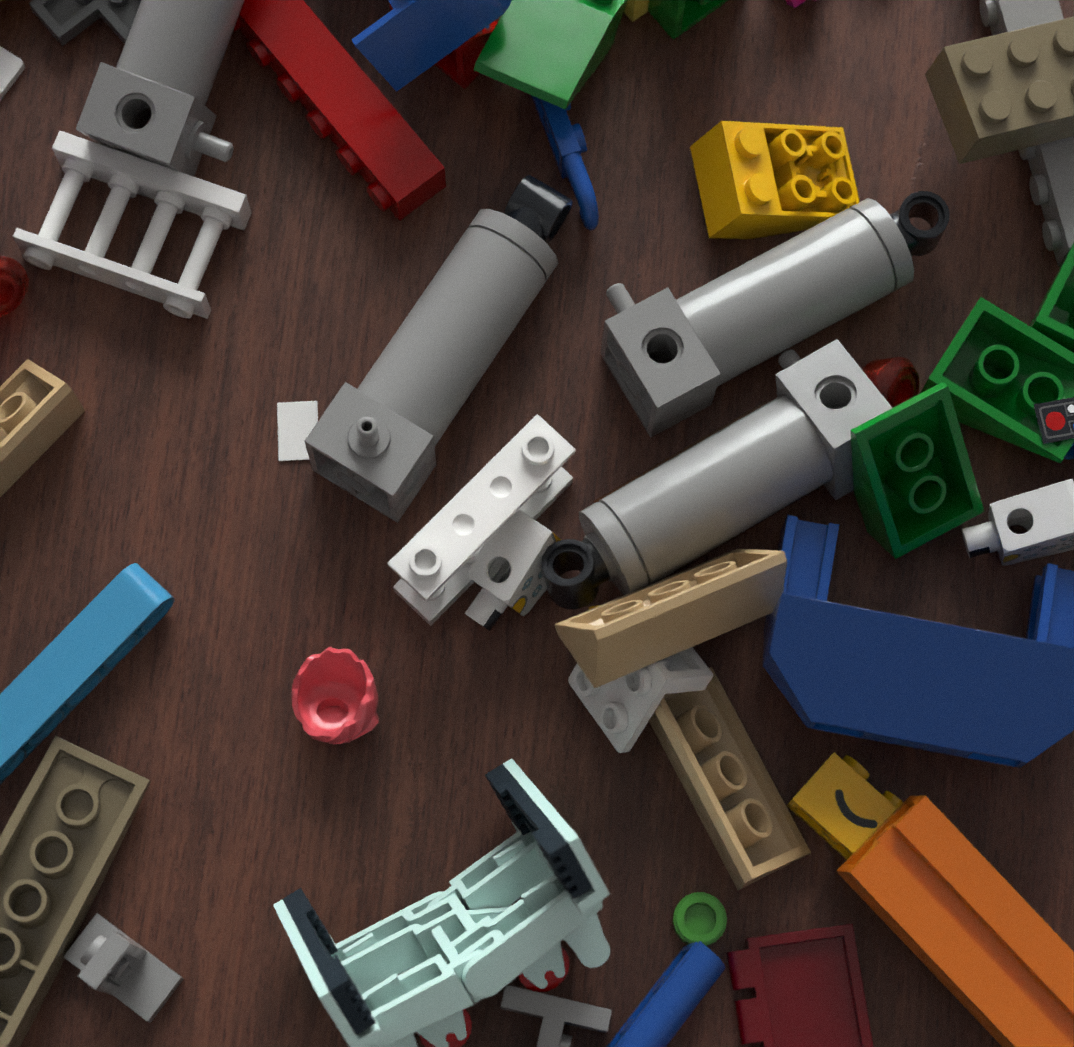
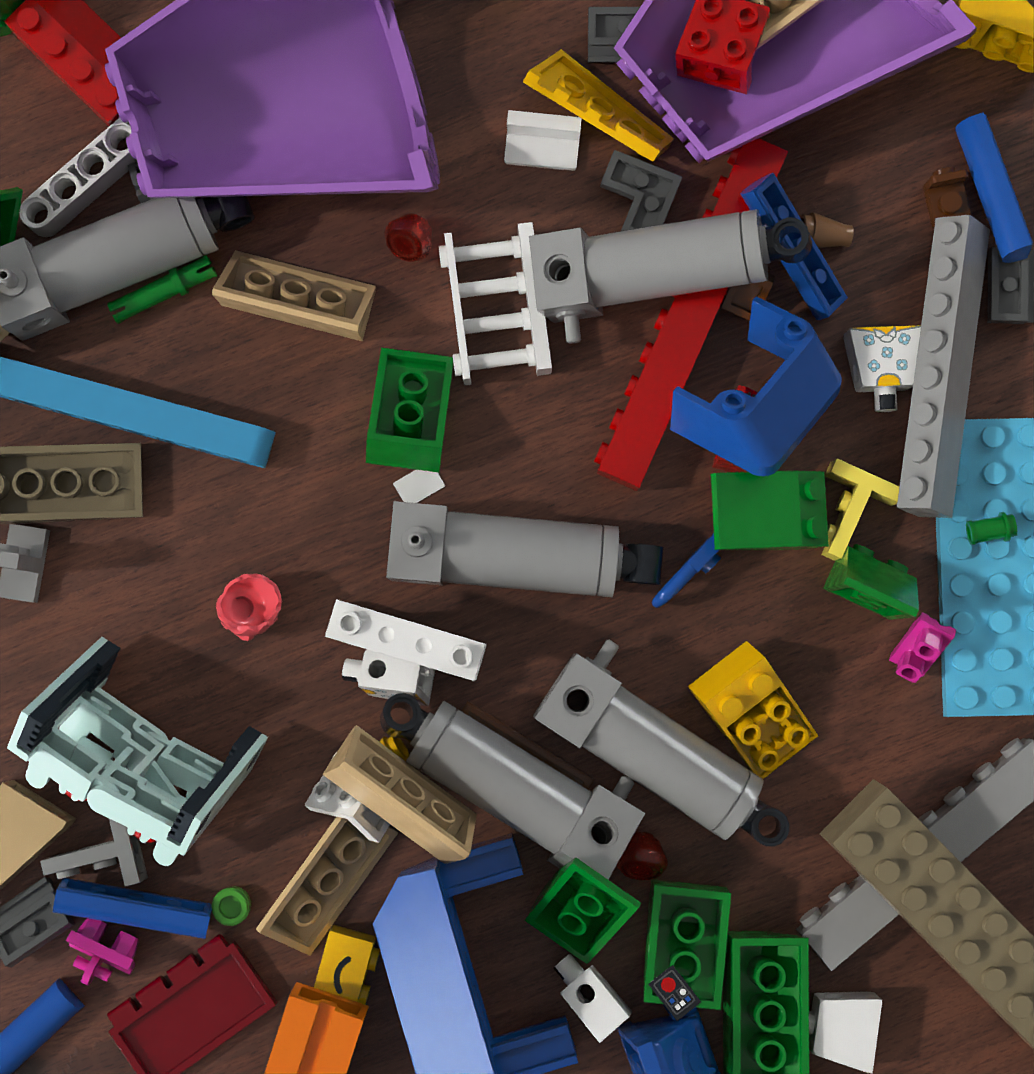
camera: 65 degrees right, 10 degrees up
(204, 390) = (409, 410): none -> green slope

